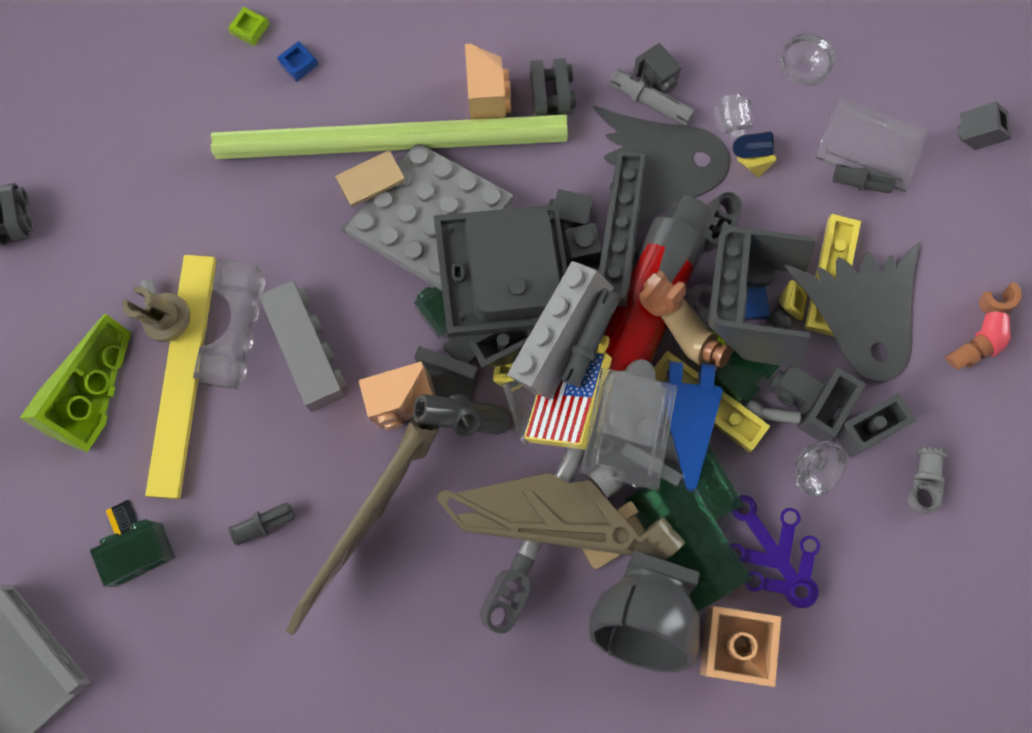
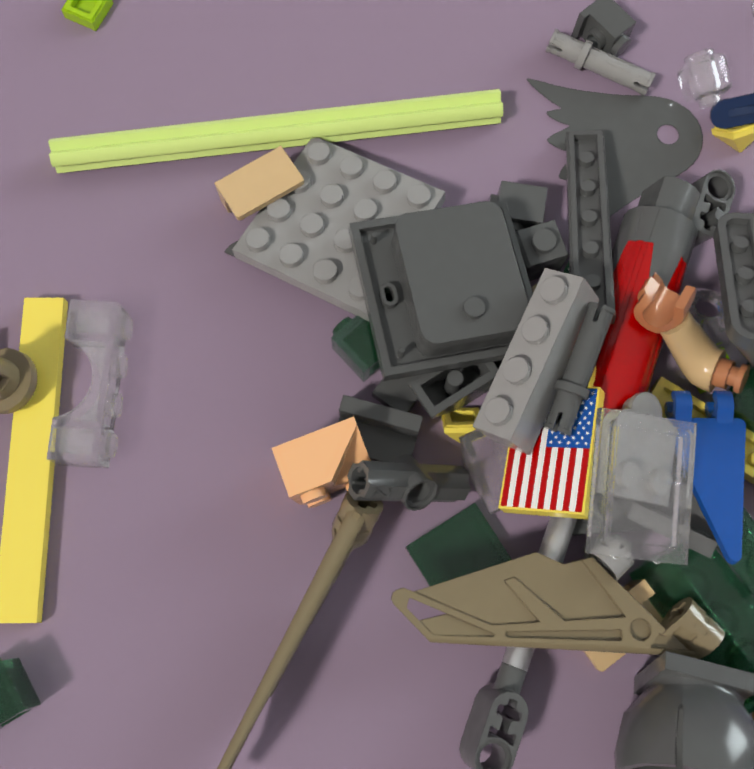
camera: 10 degrees left, 0 degrees up
(261, 523) = (153, 648): dark grey axle -> none
(297, 61) = (152, 45): blue tile -> none
(302, 345) = (189, 406): light grey brick -> none
(487, 84) = (396, 56): light nougat slope -> none
(495, 465) = (457, 547): none -> clear green tile
(561, 74) = (487, 43): dark grey brick -> none

